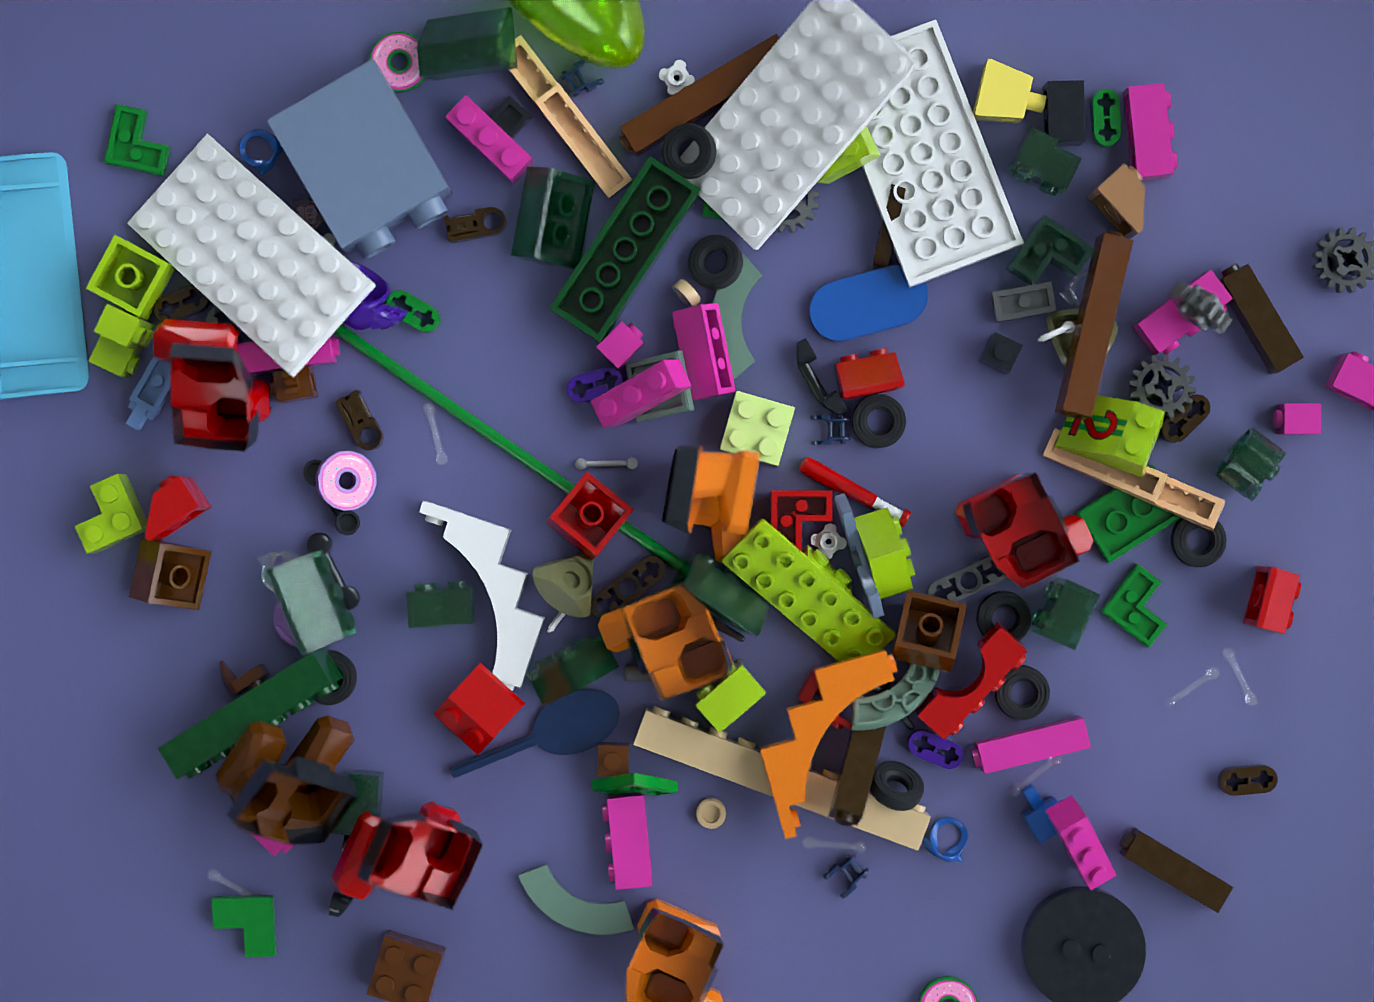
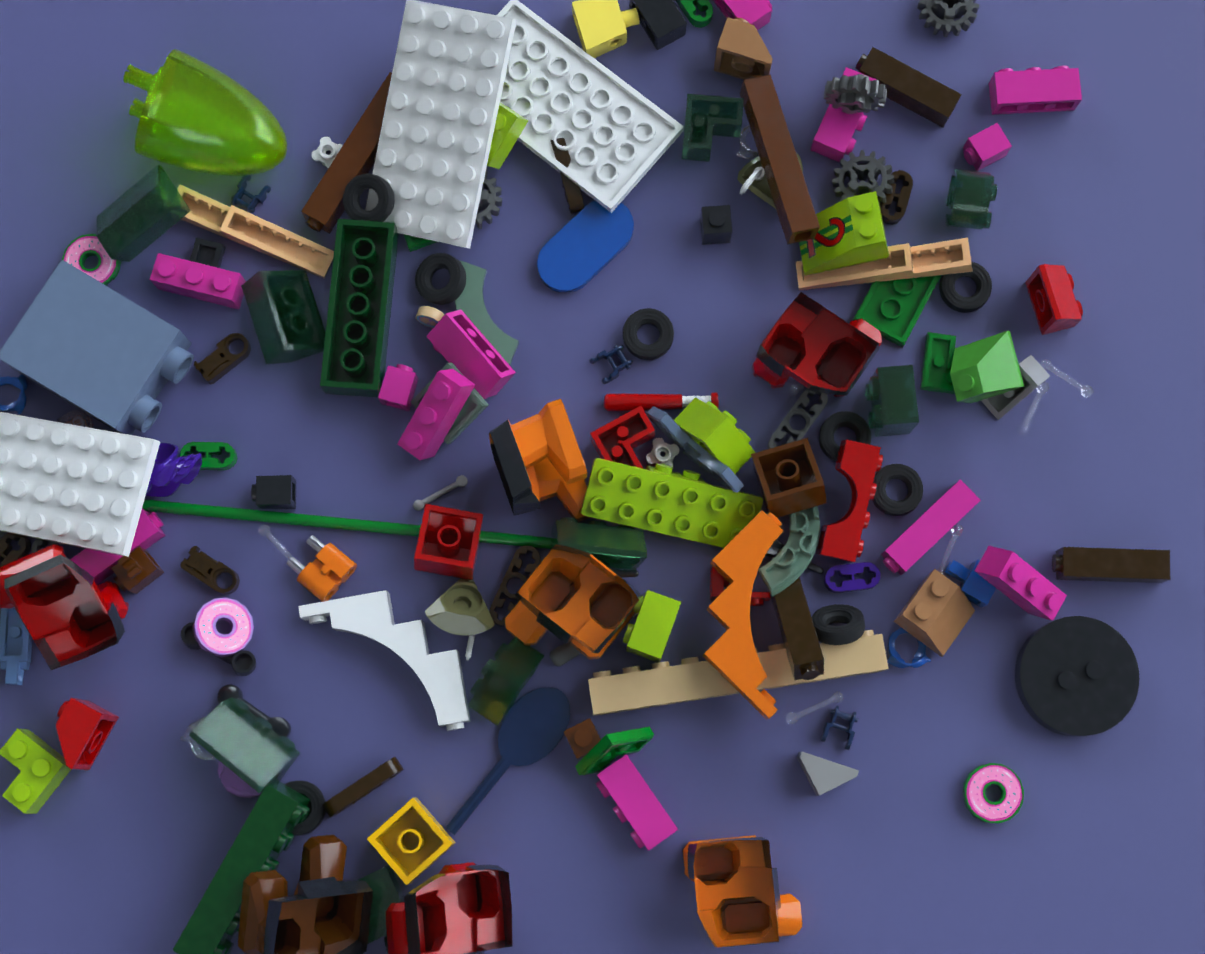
camera: 25 degrees left, 10 degrees down
(170, 574) = (109, 793): reddish brown slope -> none
(248, 680) = (215, 859): reddish brown plate -> none
(395, 692) = (362, 787): none -> dark brown beam
(413, 765) = (411, 840): none -> yellow brick
(440, 606) = (361, 690): clear green brick -> none
(456, 380) = (274, 492): none -> black brick
(463, 480) = (325, 572): none -> orange piece
(479, 708) = (442, 758): red slope -> none
(571, 911) = (621, 894): sand green tile -> none
(592, 377) = (387, 430): dark purple beam -> none
(711, 813) = (693, 739): tan tile -> none
(757, 427) = (550, 382): yellowish green brick -> none
(809, 909) = (824, 774): none -> light grey slope
(830, 401) = (601, 339): black bar -> none
(869, 374) = (618, 300): red slope -> none
(991, 823) = (936, 612): none -> medium nougat slope
(1023, 302) = (711, 175): dark grey plate -> none
(1043, 163) = (663, 58): clear green brick -> none
(1167, 630) = (985, 368): none -> bright green slope
(1186, 660) = (1032, 375): none -> light grey slope
(1247, 772) = (1121, 453): dark brown beam -> none

